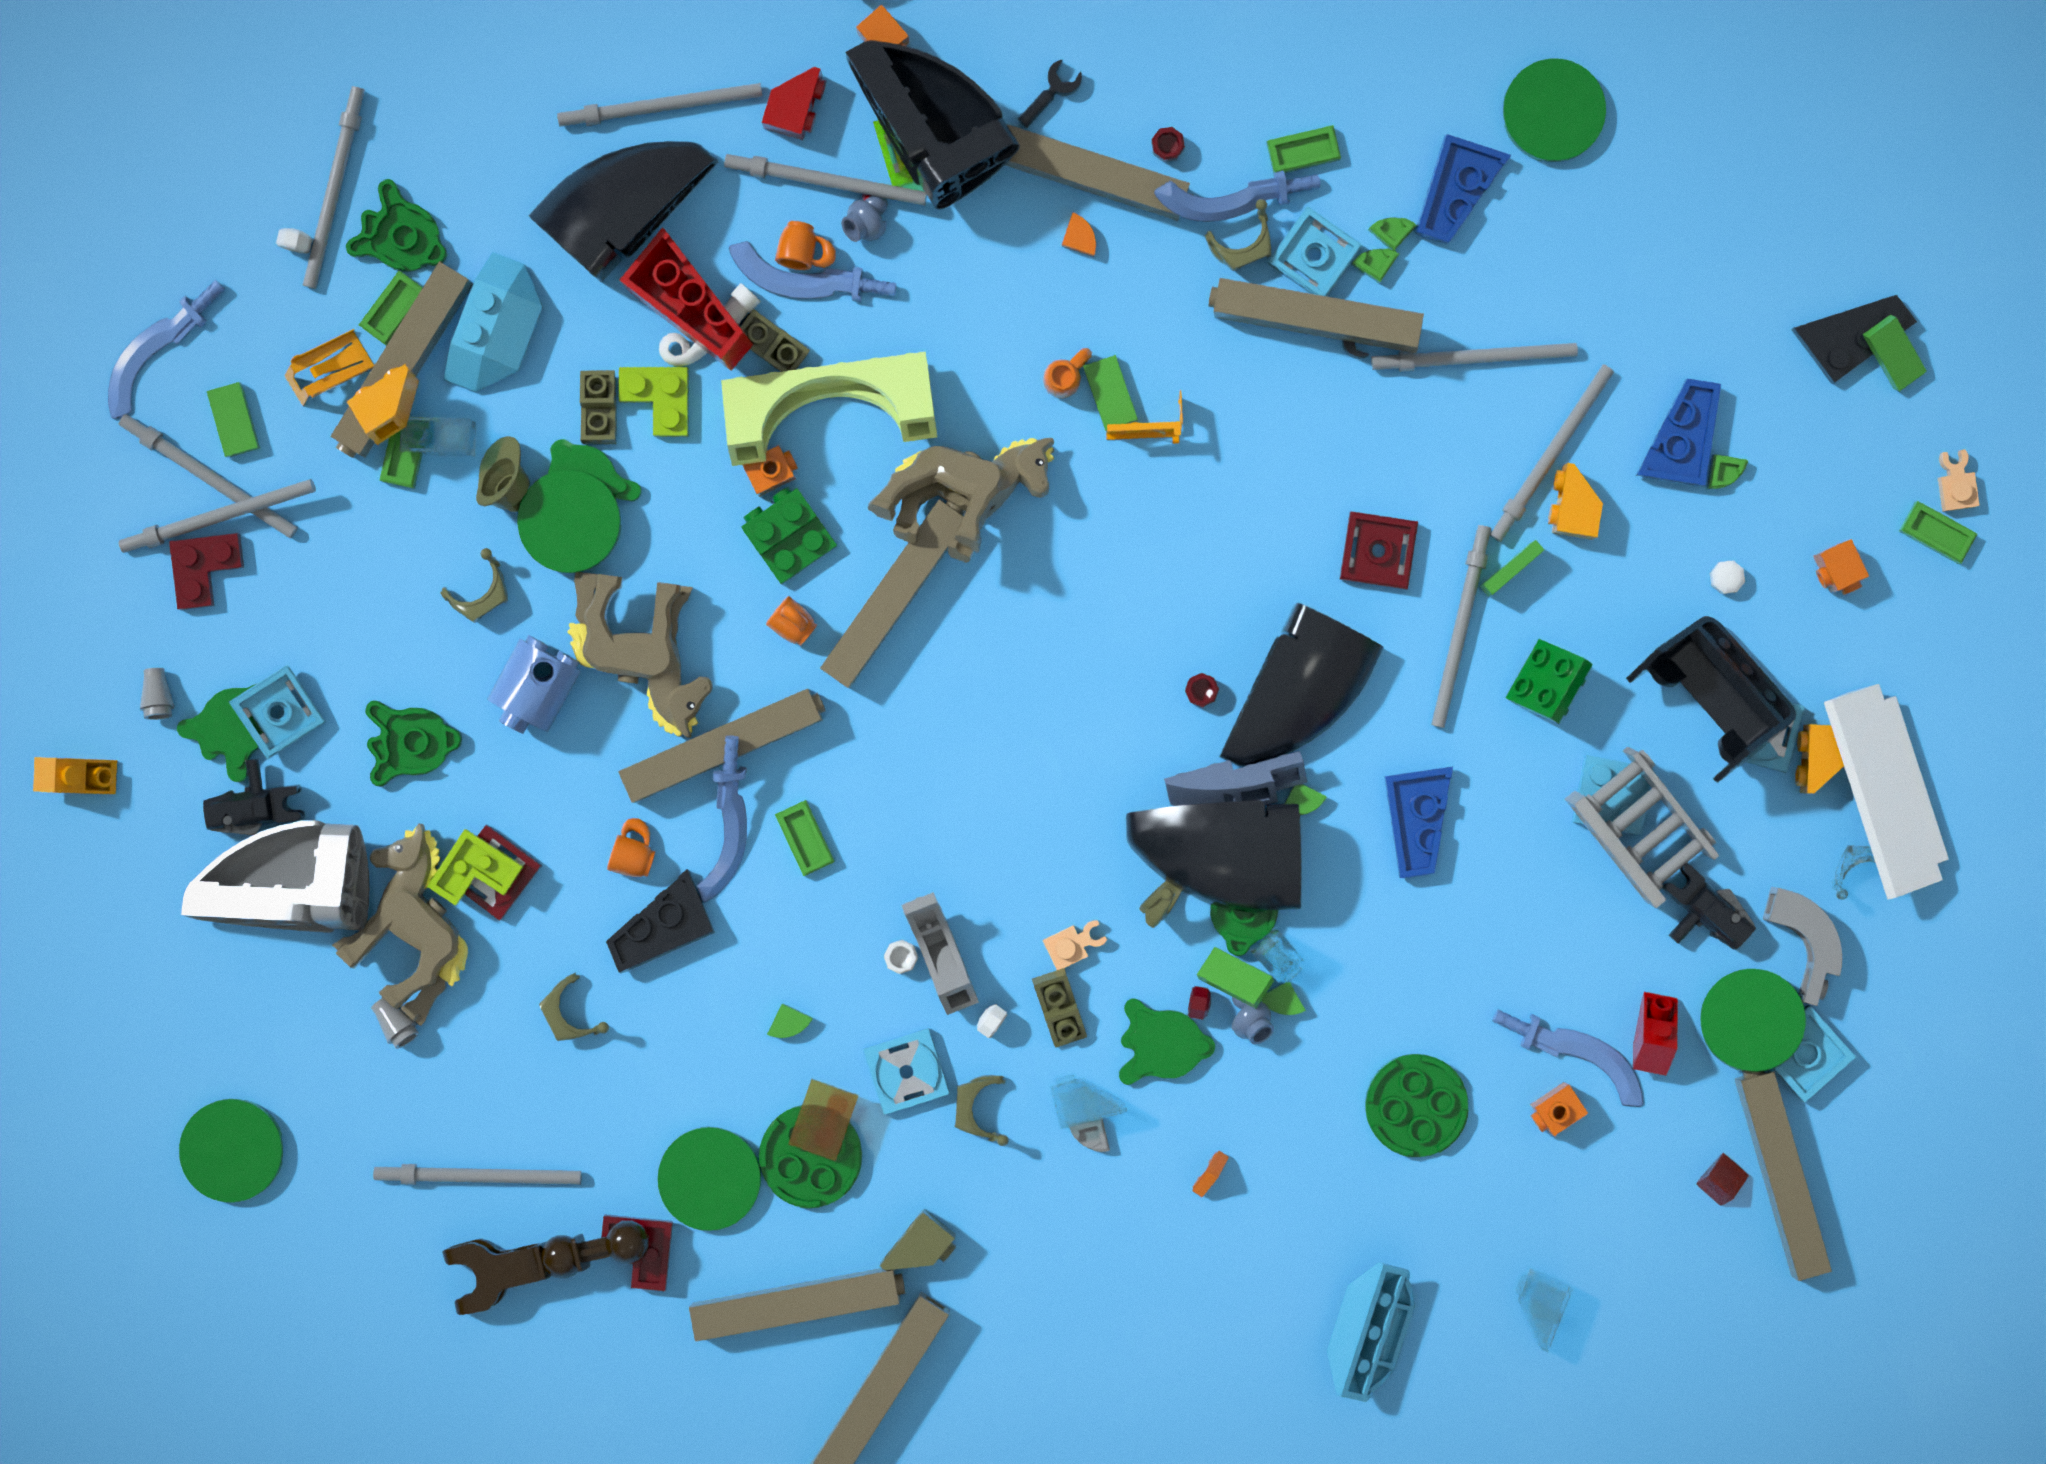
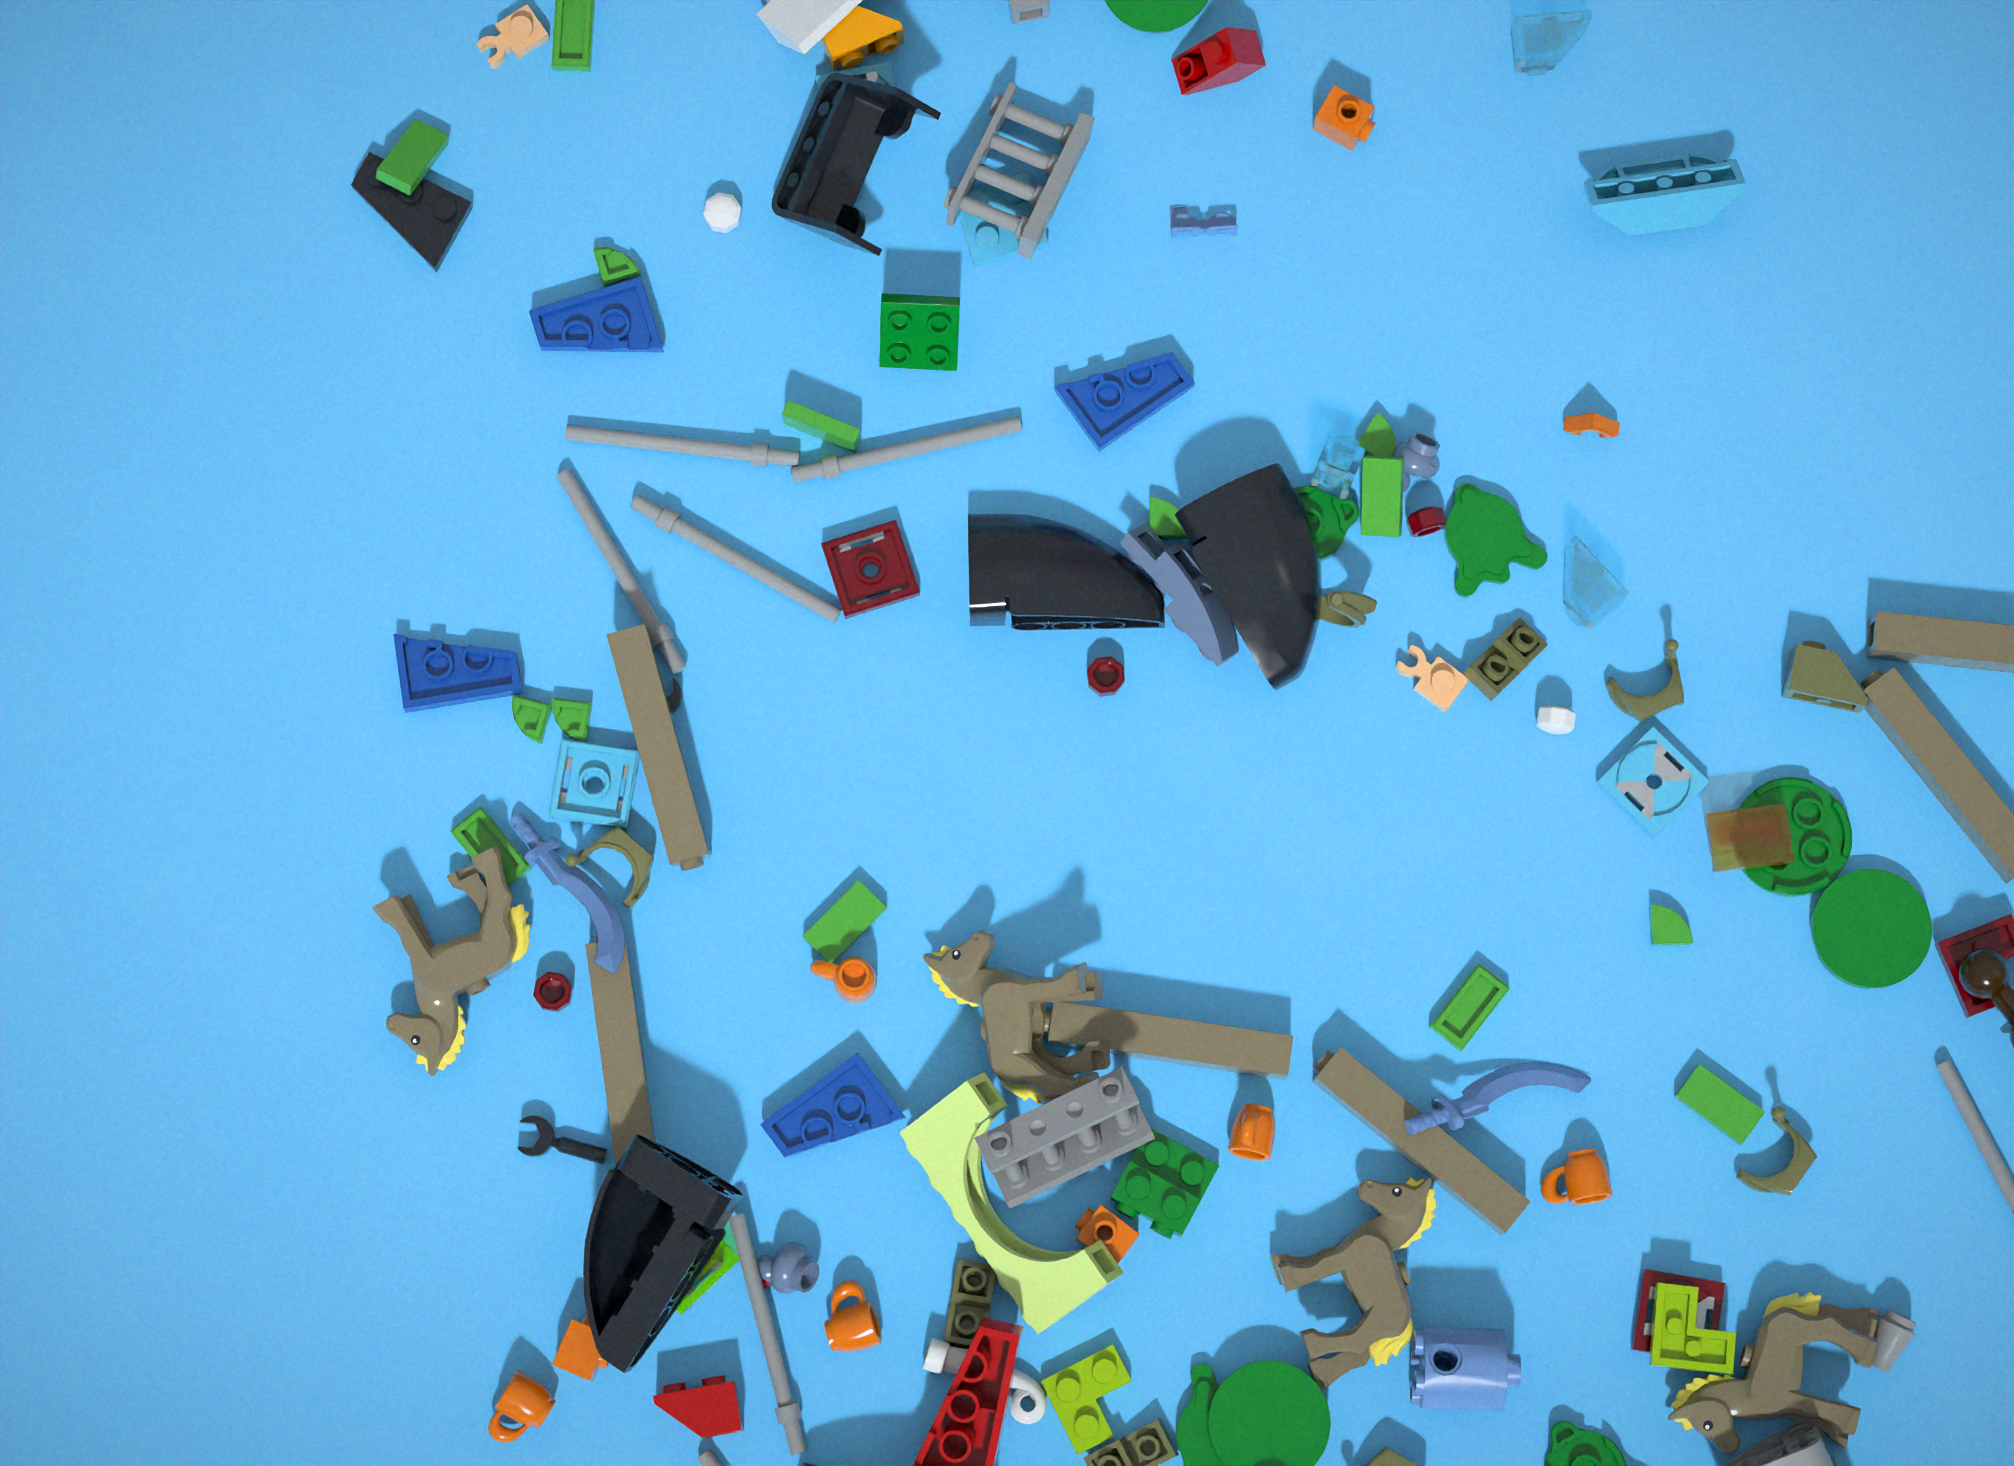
camera: 120 degrees left, 10 degrees down
(635, 989) = (1719, 1104): none -> bright green tile
(665, 925) = (1640, 1108): black wing -> none
(804, 285) = (890, 1302): medium blue sword -> none
(856, 472) = (1065, 1137): none -> light grey fence
(900, 956) = (1539, 845): white tile -> none
(940, 953) = (1517, 802): light grey arch -> none
(970, 312) = (833, 1109): none -> blue wing
(1079, 236) = (694, 1036): orange tile -> none
(1091, 1135) = (1618, 560): light grey tile -> none
(1147, 430) = (852, 833): light orange piece -> none
(1224, 79) = (457, 964): none -> dark tan animal
(1416, 1105) = (1413, 259): green tile -> none
(1494, 413) = (670, 521): none -> light grey bar
(1535, 939) = (1184, 224): none -> medium blue piece
(1554, 110) = (324, 614): green tile -> none
(1577, 505) = (725, 393): light orange slope -> none
(1580, 1046) = (1269, 130): medium blue sword -> none
(1711, 908) = (1065, 64): black piece -> none
(1840, 568) = (657, 106): orange brick -> none

